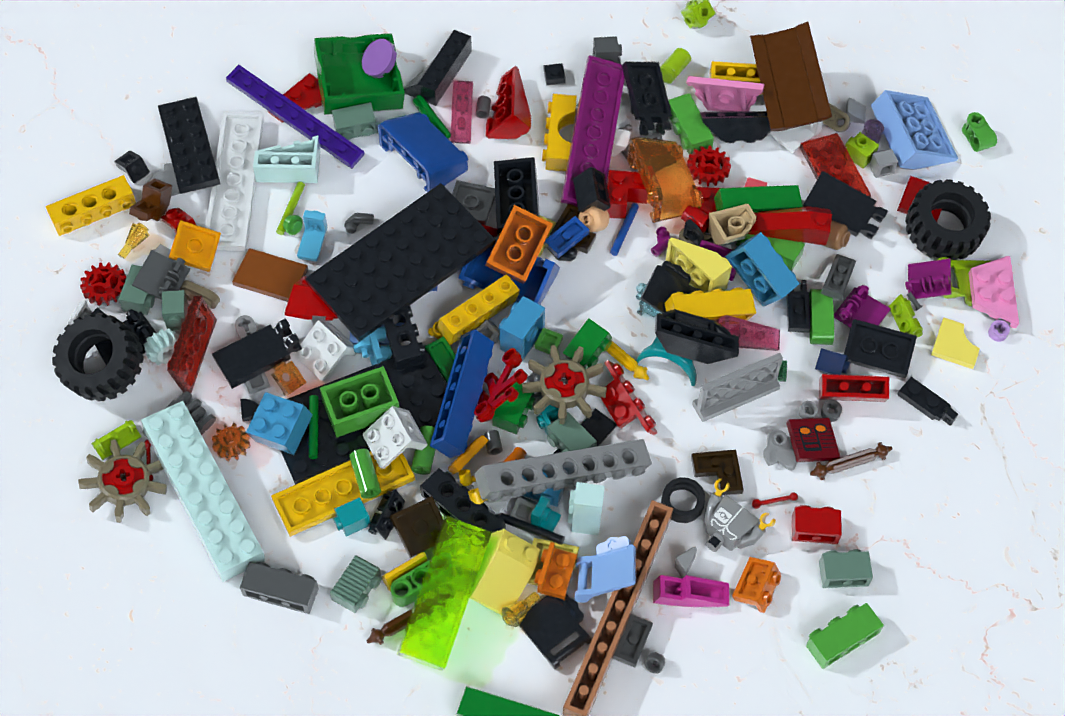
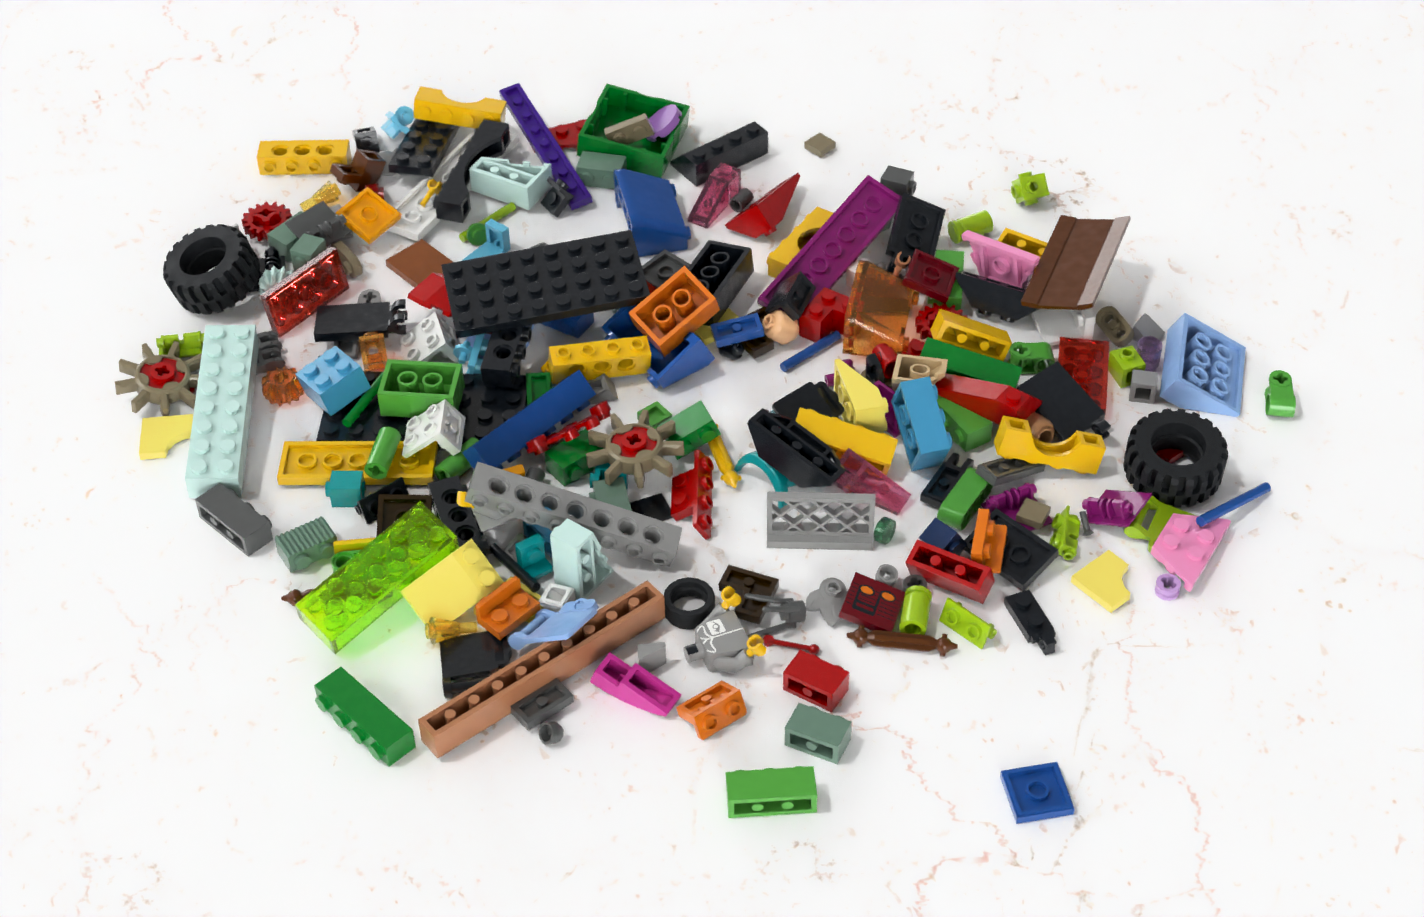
camera: 30 degrees right, 15 degrees down
(151, 142) = (397, 121): none -> medium azure hips
(157, 531) = (162, 433): none -> light yellow tile
(182, 115) = (434, 106): none -> yellow arch
(231, 199) = (434, 188): none -> yellow hand
(258, 198) = (454, 200): none -> black arch
(337, 163) = (557, 197): none -> black bracket
(361, 77) = (630, 130): none -> dark tan plate
(424, 107) = (682, 192): green axle -> none
(509, 28) = (820, 144): none -> dark tan tile
(522, 326) = (631, 388): dark azure brick -> none
(554, 74) = (836, 195): black plate -> none
(584, 542) = (556, 596): none -> white slope
(654, 127) = (900, 265): none -> nougat hand
(684, 129) = (930, 276): none -> dark red tile
(744, 171) = (971, 335): none -> yellow brick
(761, 476) = (789, 611): none -> dark grey plant
(791, 170) = (1031, 356): none -> bright green piece
(847, 432) = (915, 610): none -> lime piece
(869, 353) = (988, 541): none -> orange bracket
(876, 309) = (1033, 513): none -> dark tan tile
(877, 244) = (1078, 453): none -> yellow arch
(887, 426) = (966, 623): none -> lime hinge
(1004, 241) = (1233, 504): none -> blue bar
(1015, 544) = (1037, 792): none -> blue tile

